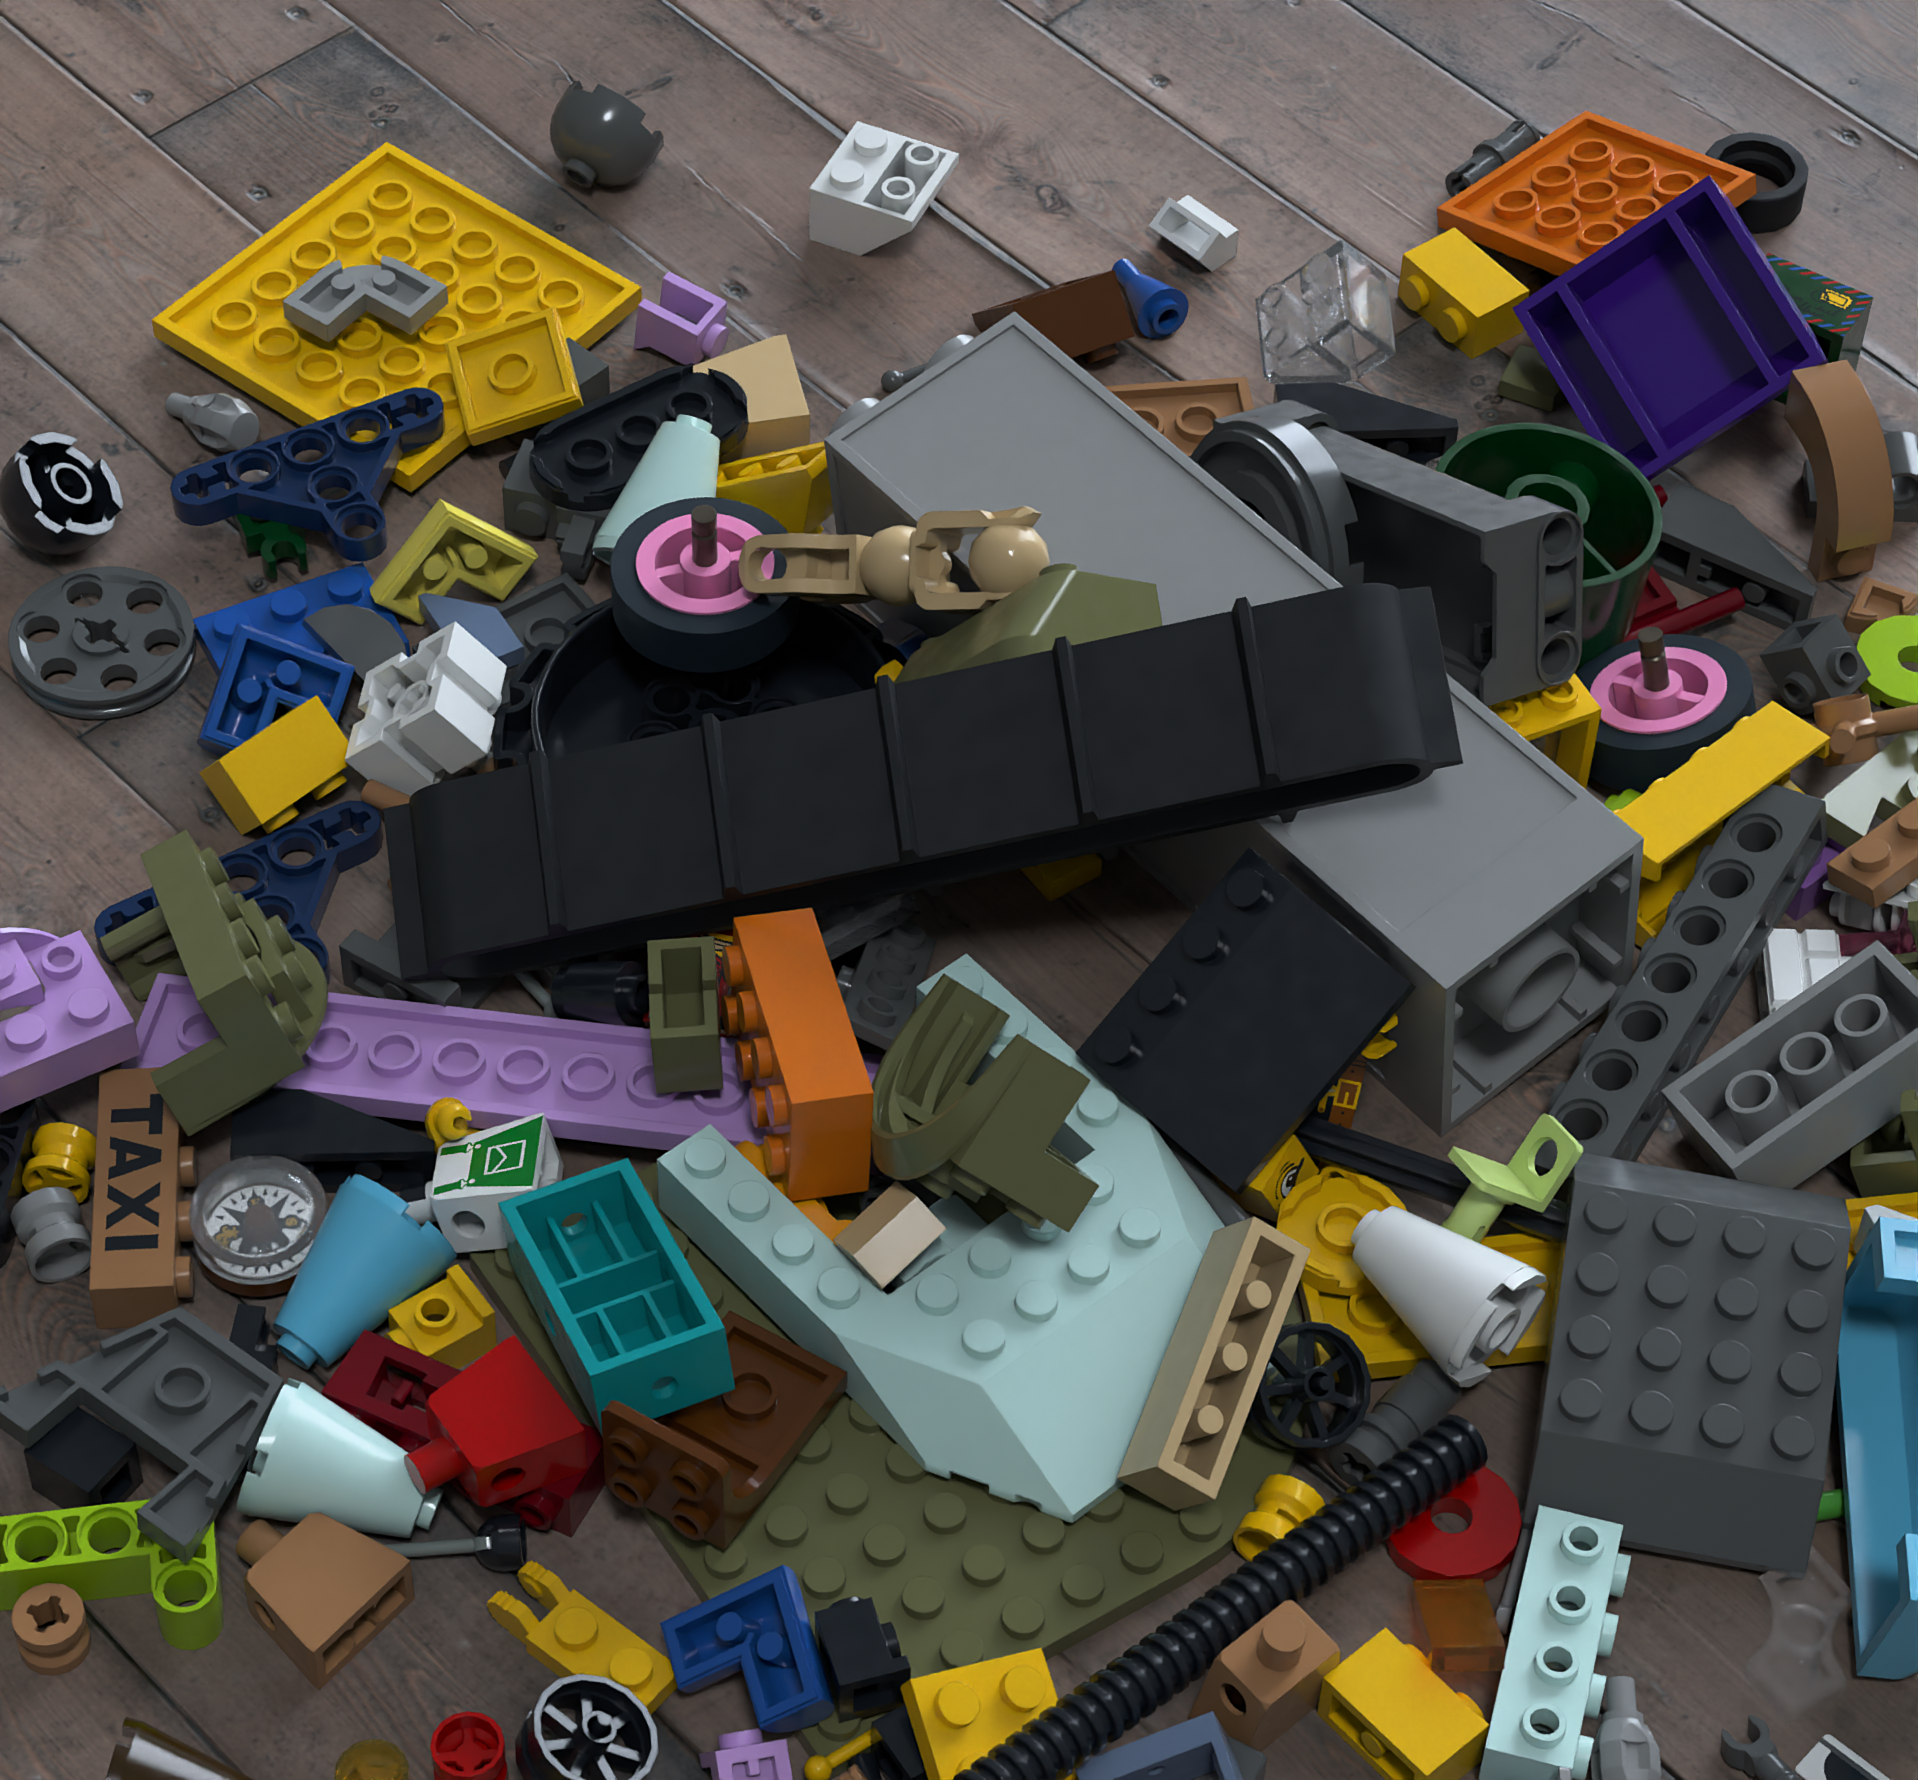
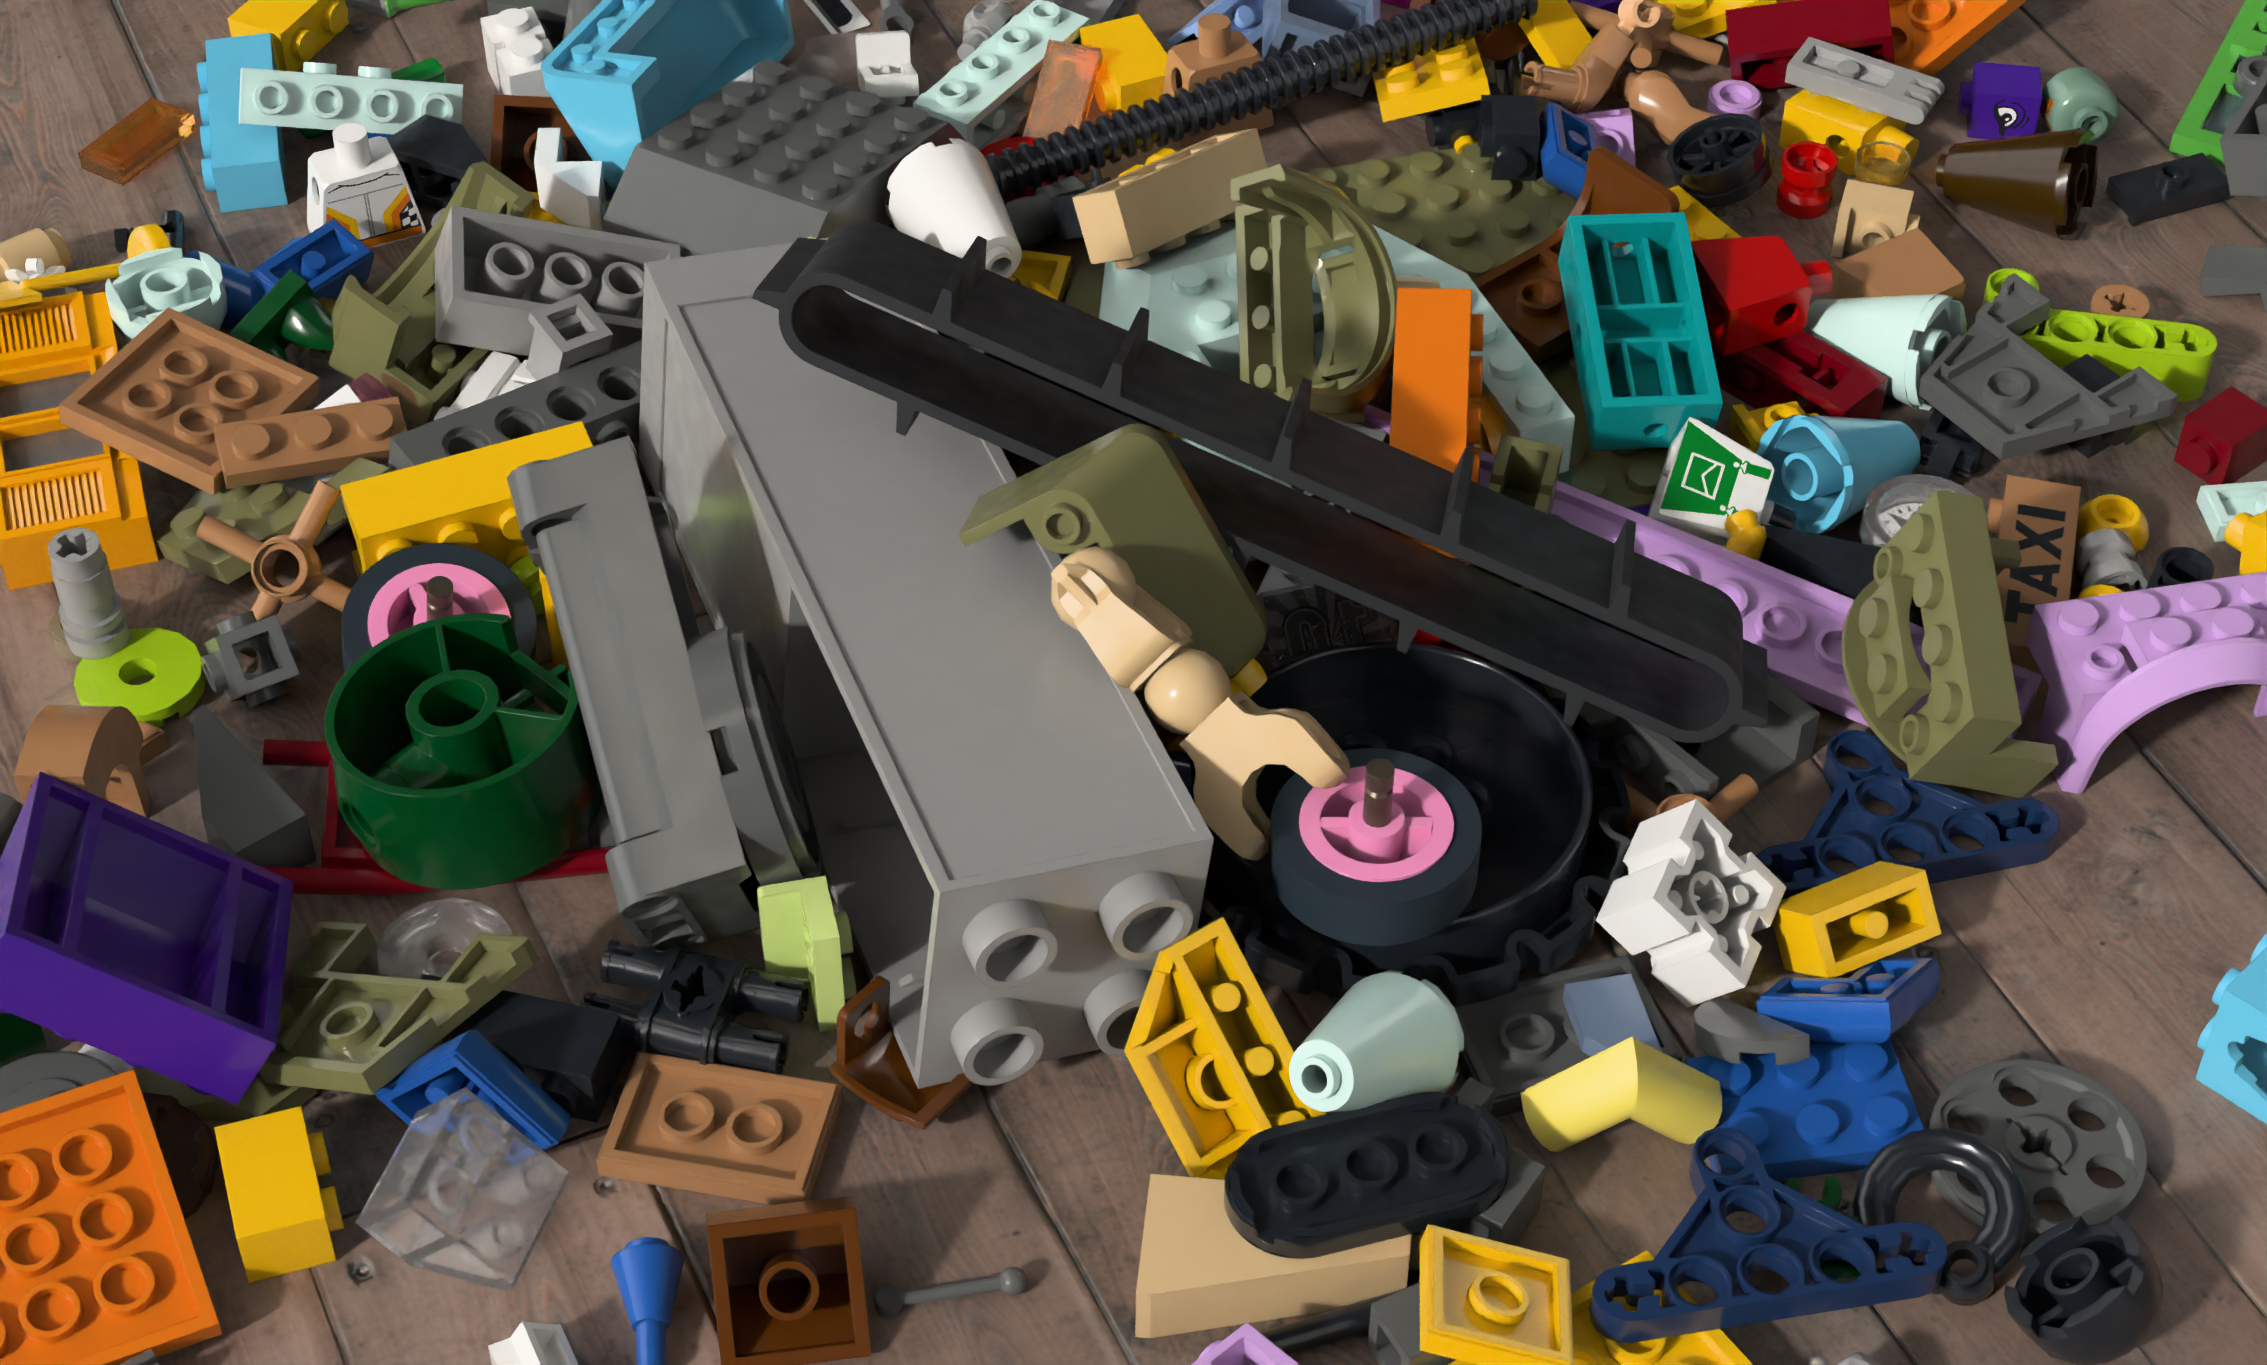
camera: 160 degrees left, 5 degrees down
(55, 1336) = (2116, 513): none -> yellow plate
(160, 534) = (1982, 1164): none -> black piece
(370, 1704) = (1871, 216): none -> tan brick
(1362, 345) = (489, 1075): none -> blue brick
(1468, 377) = (367, 1029): none -> olive wing
(1701, 1625) = (886, 65): none -> white bracket
(1756, 983) = (565, 336): none -> light grey brick

